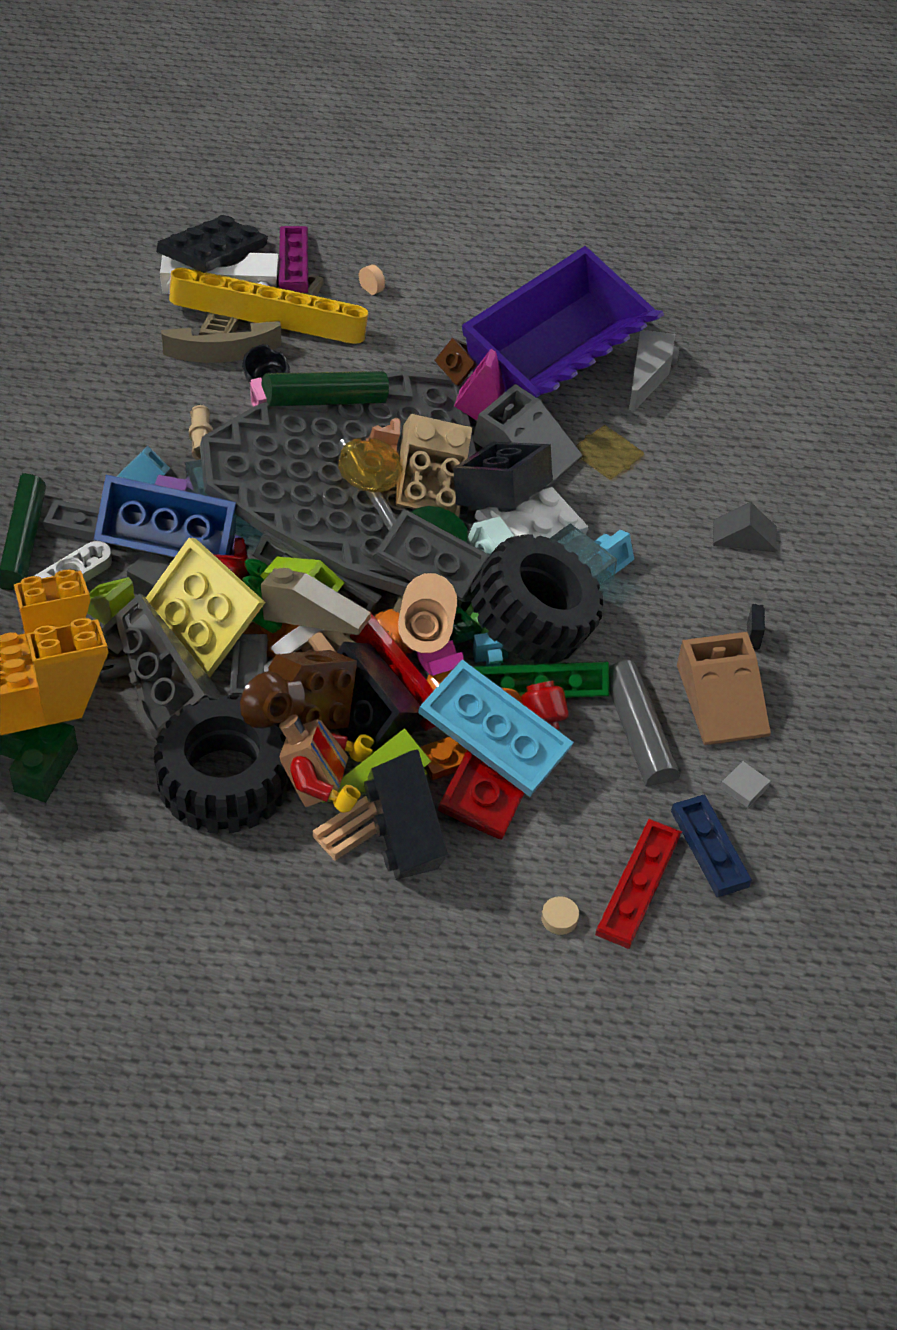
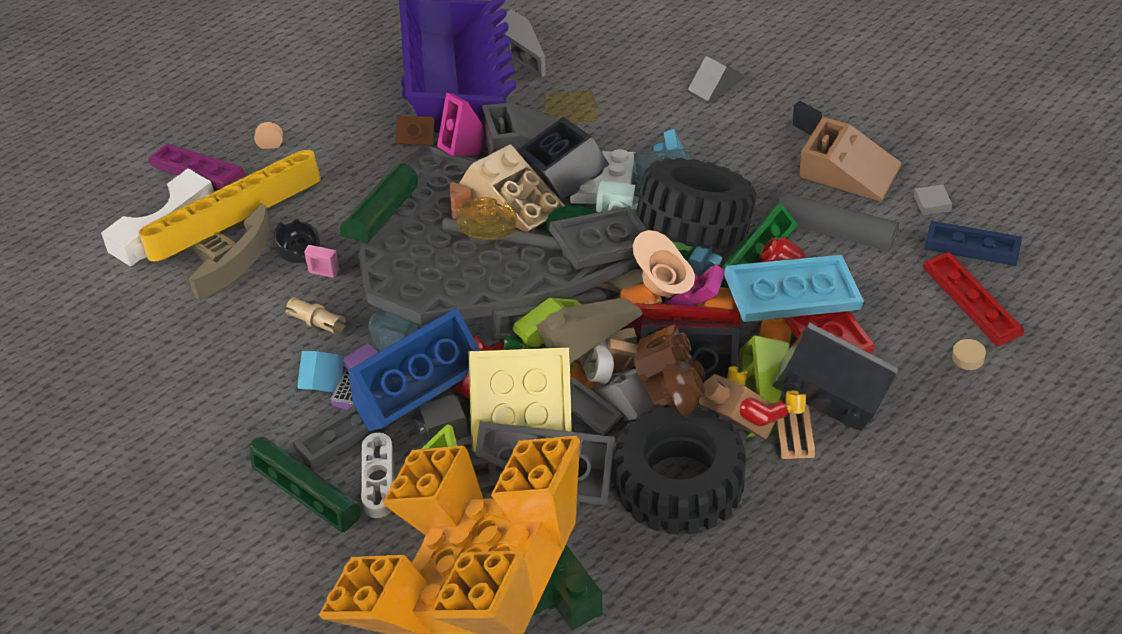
camera: 45 degrees left, 5 degrees down
(212, 243) = (128, 200): black plate -> none

